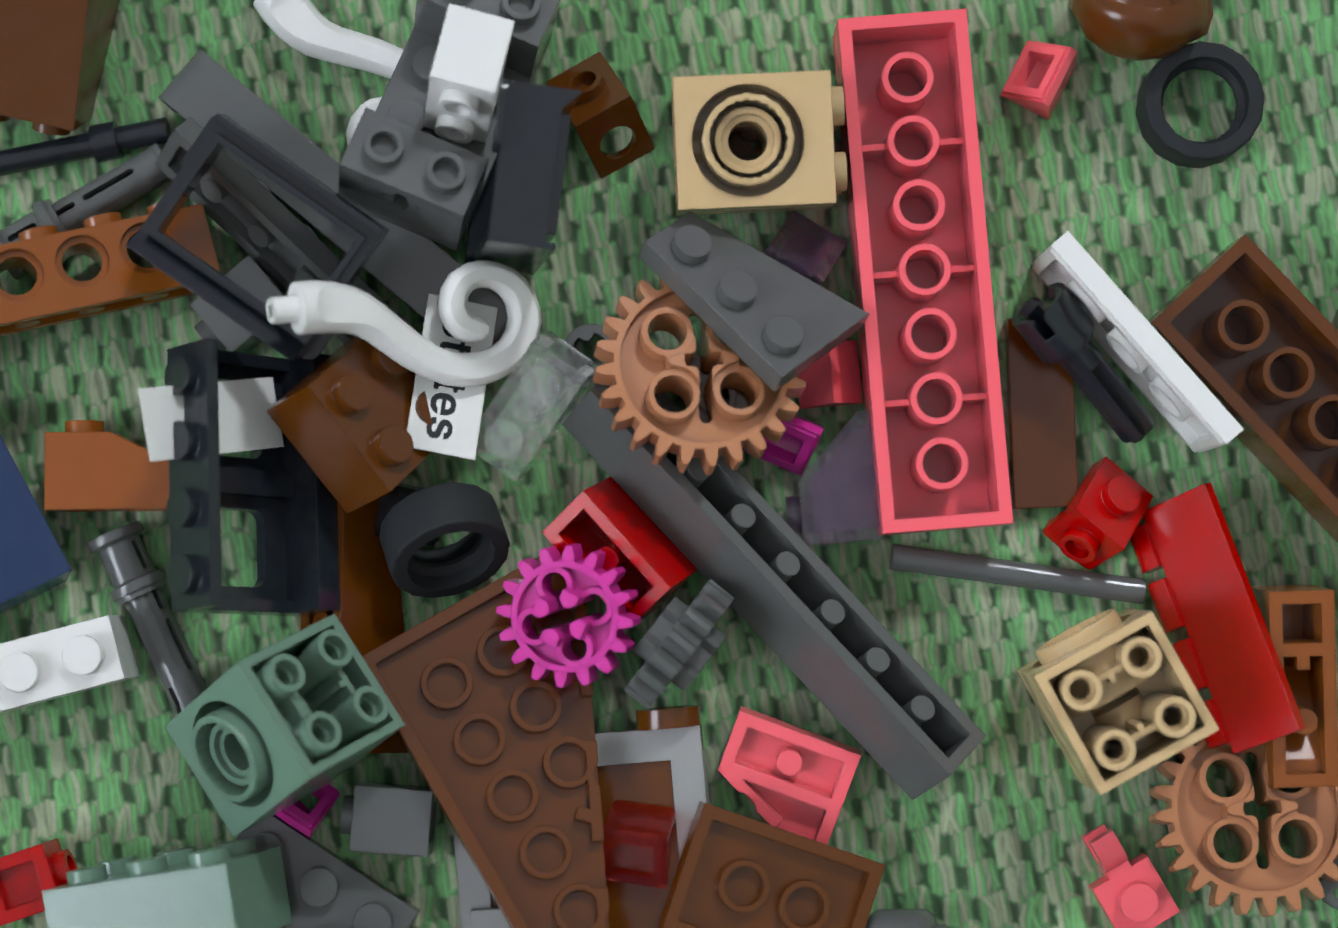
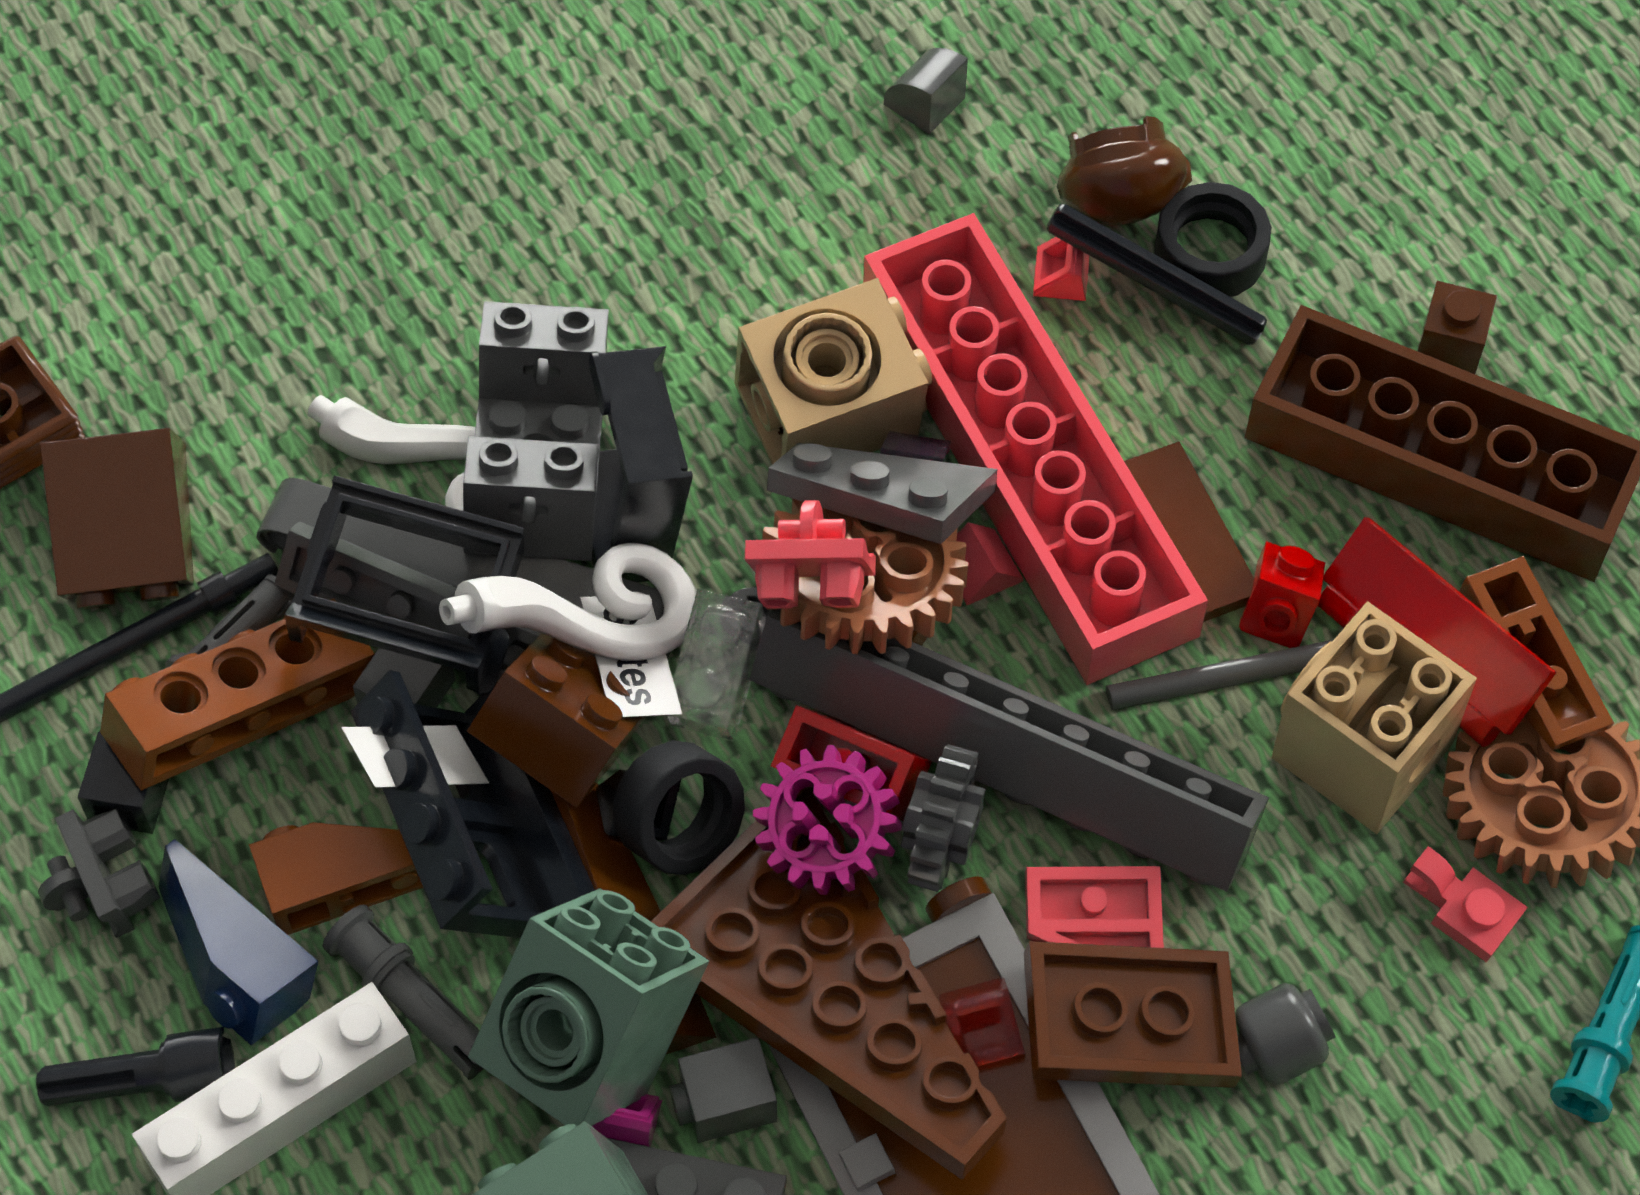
camera: 20 degrees left, 25 degrees down
(467, 74) = (551, 379): white brick -> none
(600, 109) = (689, 402): reddish brown bracket -> none
(610, 365) = (810, 550): none -> coral hips
(795, 446) = (970, 631): dark pink slope -> none
(839, 490) = (1037, 645): clear purple slope -> none
(1064, 336) = (1185, 450): black piece -> none
(1123, 130) = (1156, 274): none -> black axle
(1139, 348) = (1247, 429): white tile -> none

